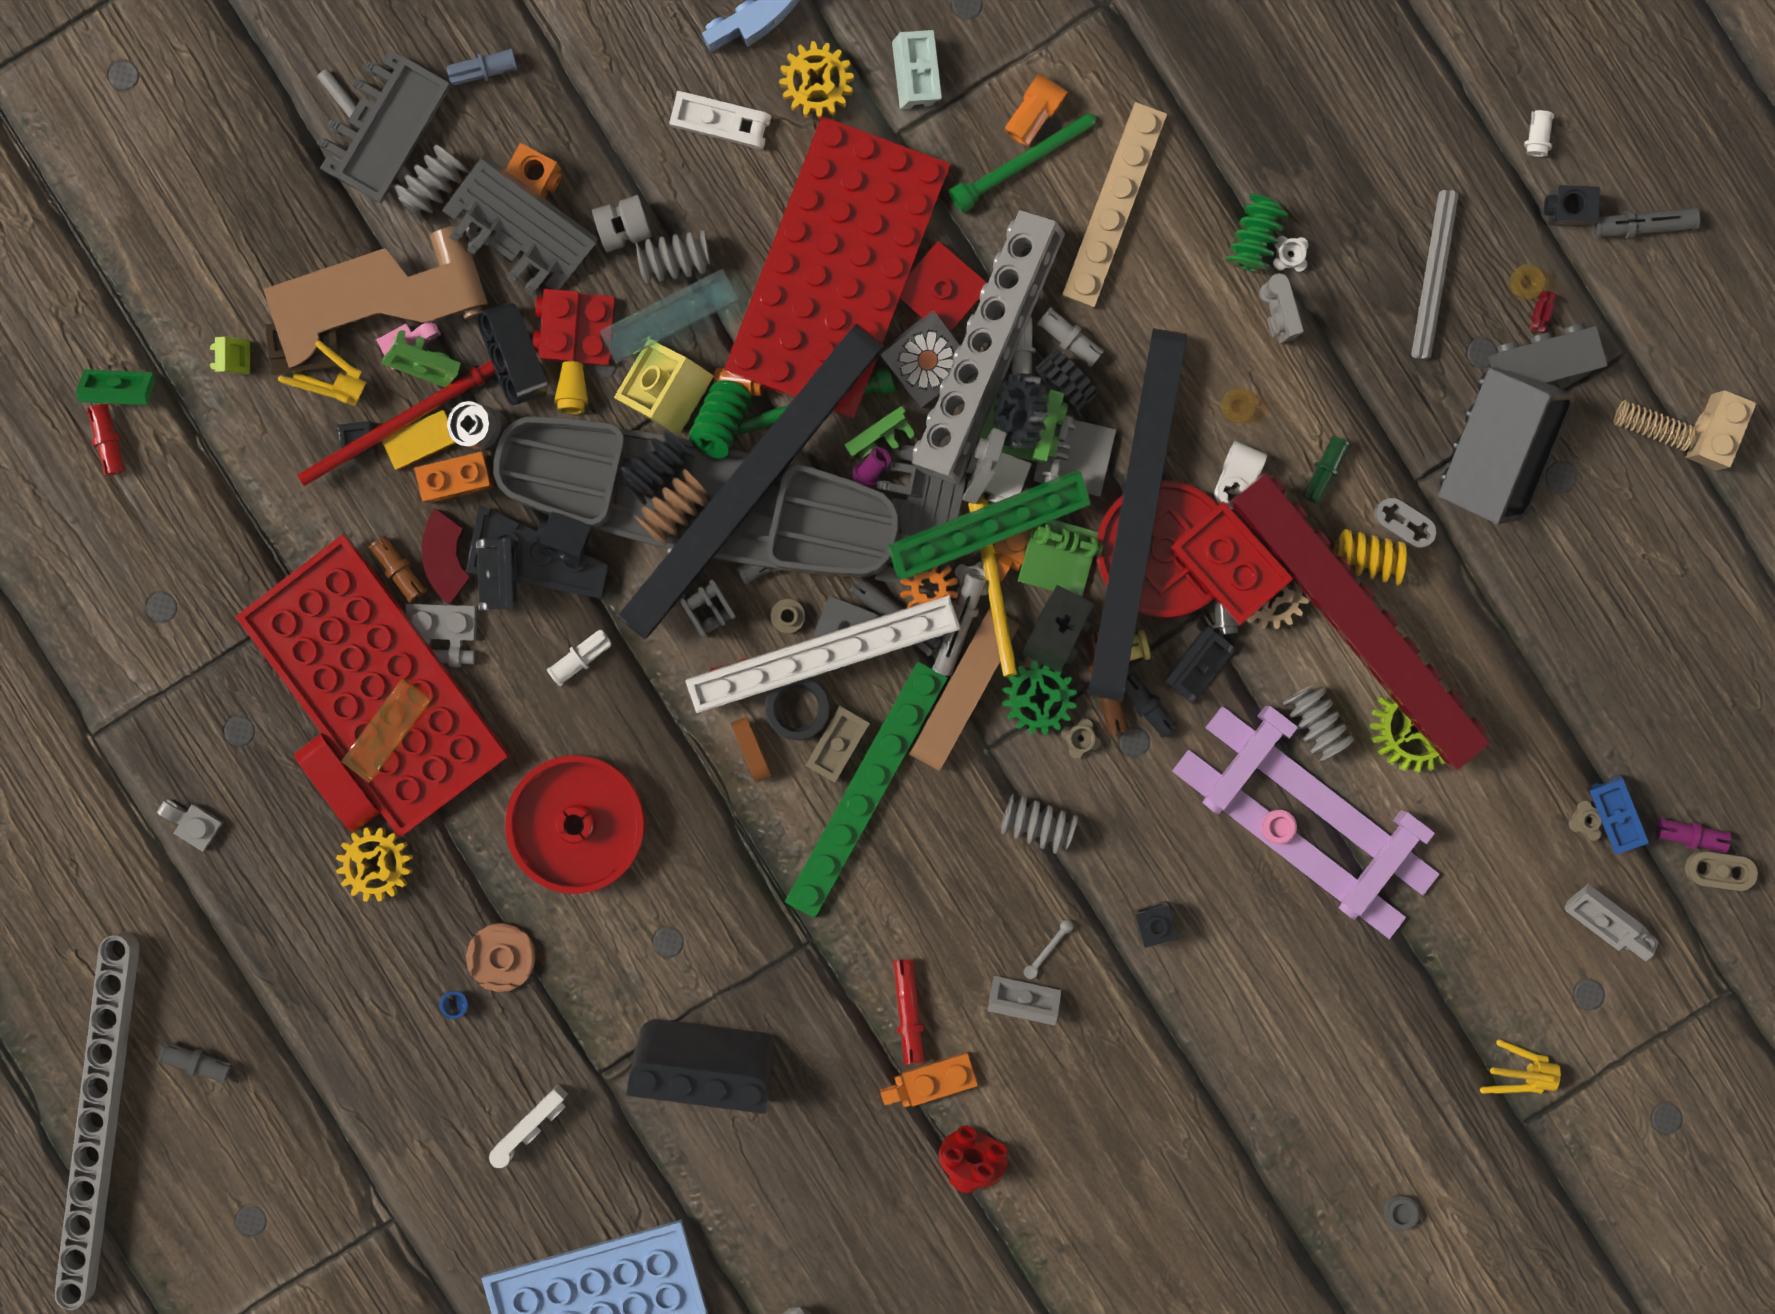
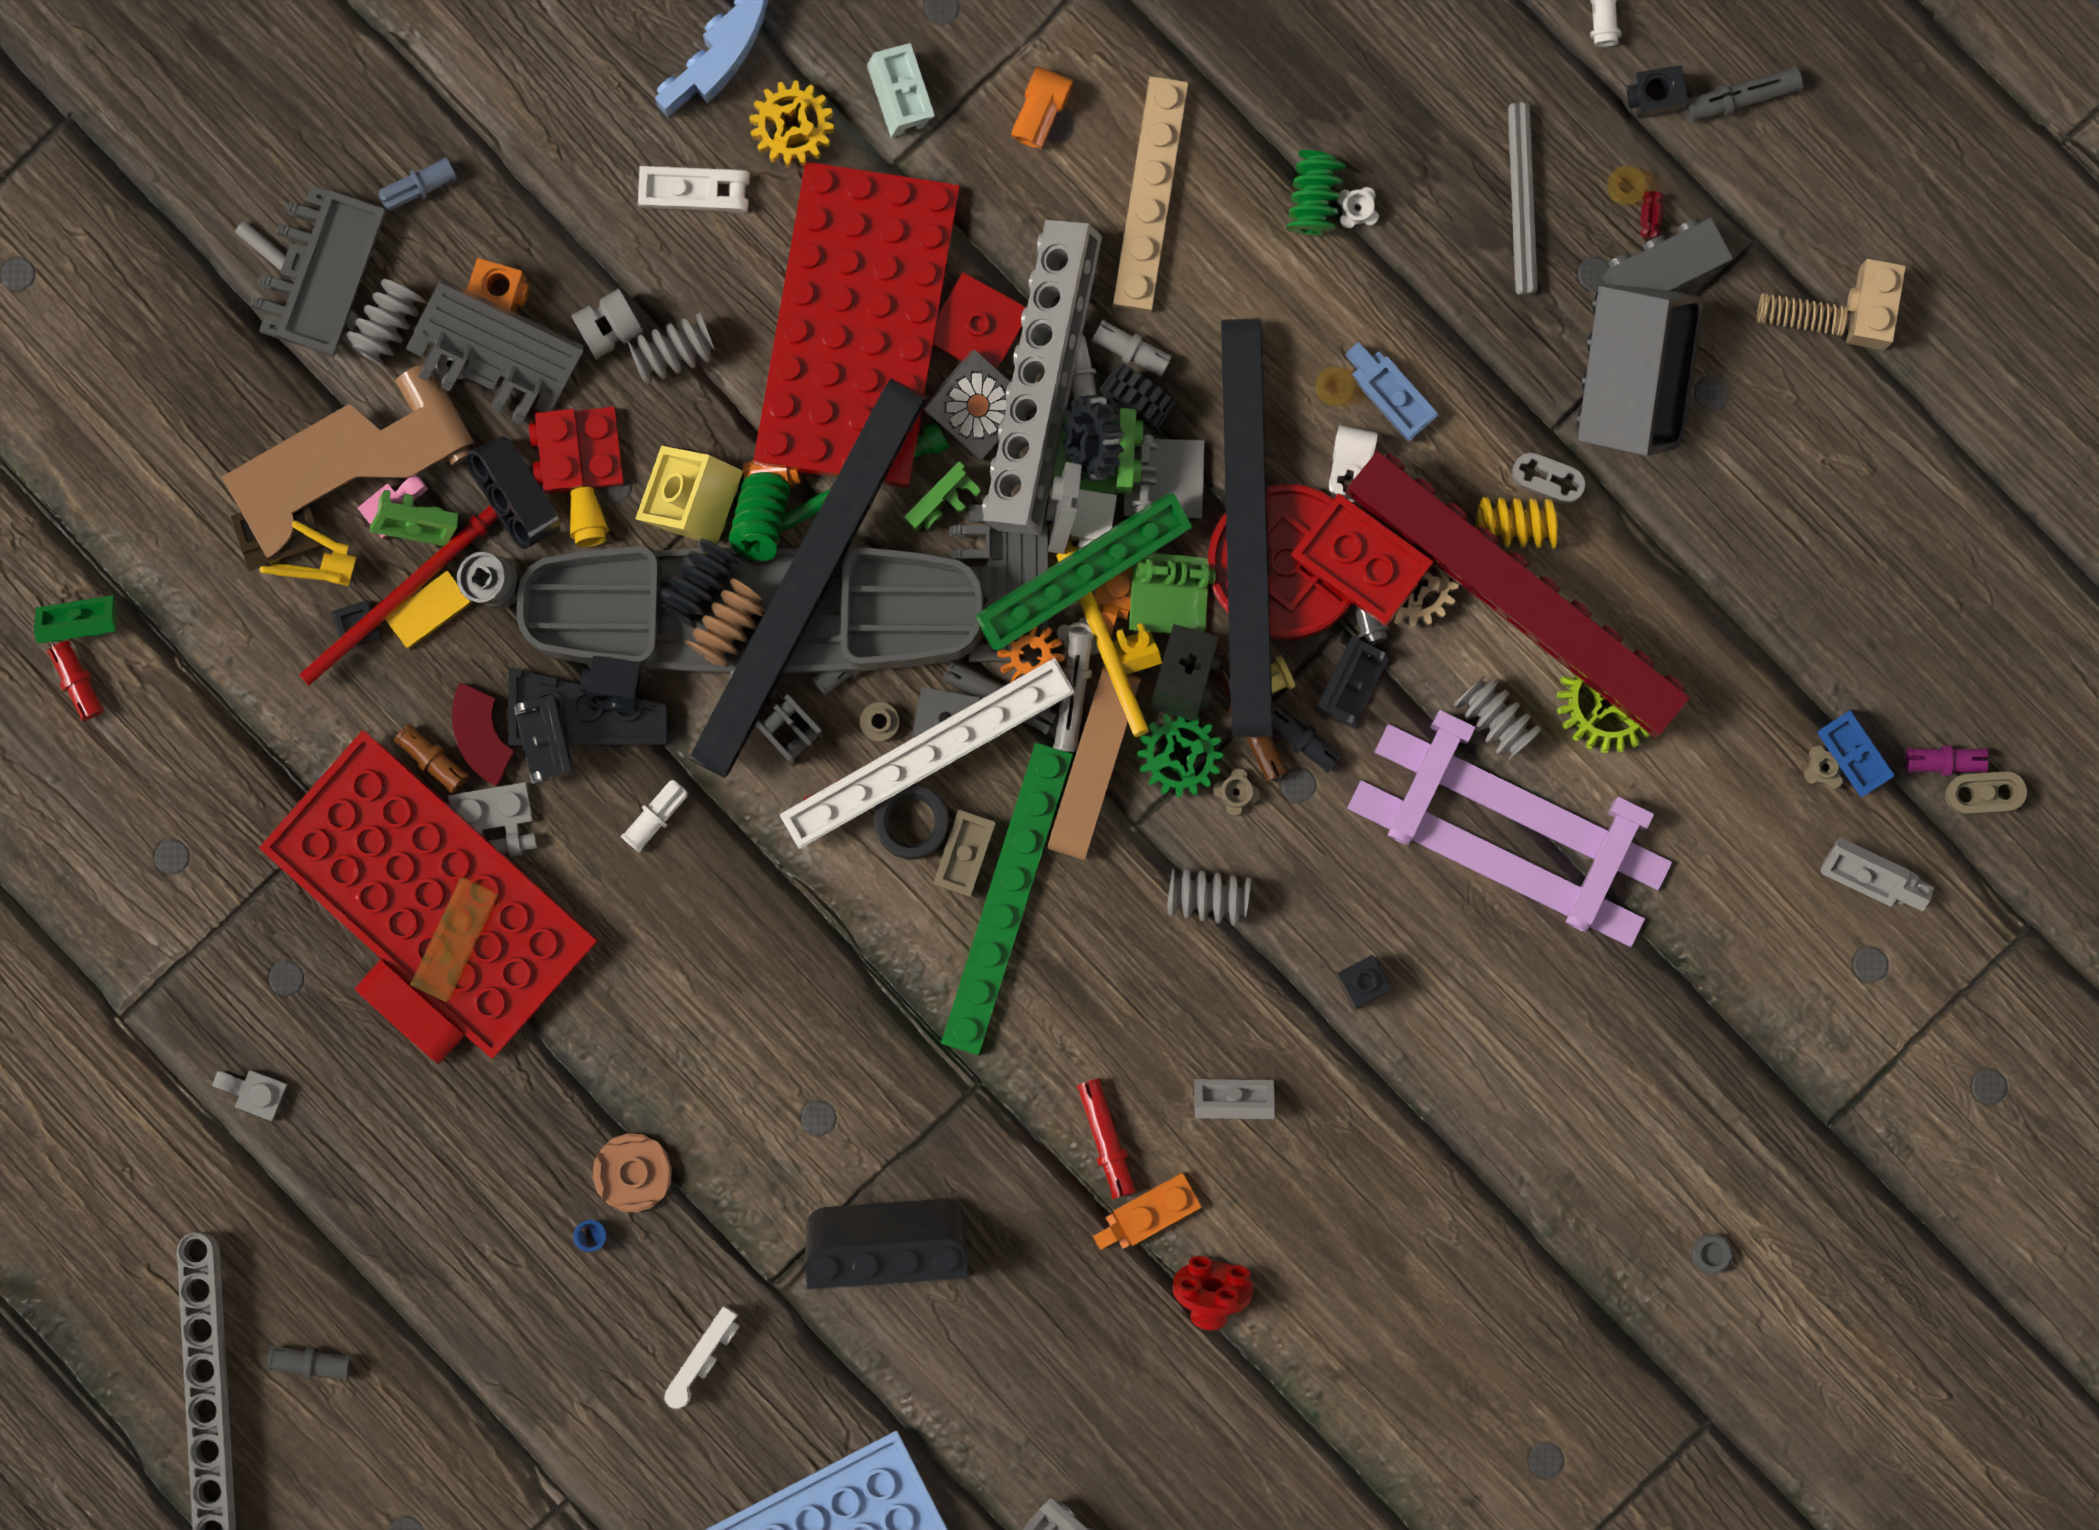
camera: 10 degrees left, 5 degrees down
(231, 355) = (198, 558): lime tile -> none
(360, 855) = (461, 1112): yellow gear -> none
(454, 477) = (476, 642): orange brick -> none
(539, 829) = (646, 994): red piece -> none
(669, 316) = (679, 415): clear light blue plate -> none
(751, 749) = (869, 879): dark orange beam -> none
(869, 471) = (940, 535): magenta pin -> none
(966, 195) = (984, 216): green piece -> none
(1021, 600) = (1137, 651): none -> yellow tile
(1031, 970) = (1264, 1008): light grey hinge -> none
(1278, 826) = (1479, 845): bright pink tile -> none
(1284, 315) = (1364, 281): light grey plate -> none
(1285, 420) = (1391, 392): none -> medium blue hinge
(1326, 469) = (1448, 437): dark green axle -> none
(1538, 1076) = (1834, 1064): yellow plant -> none

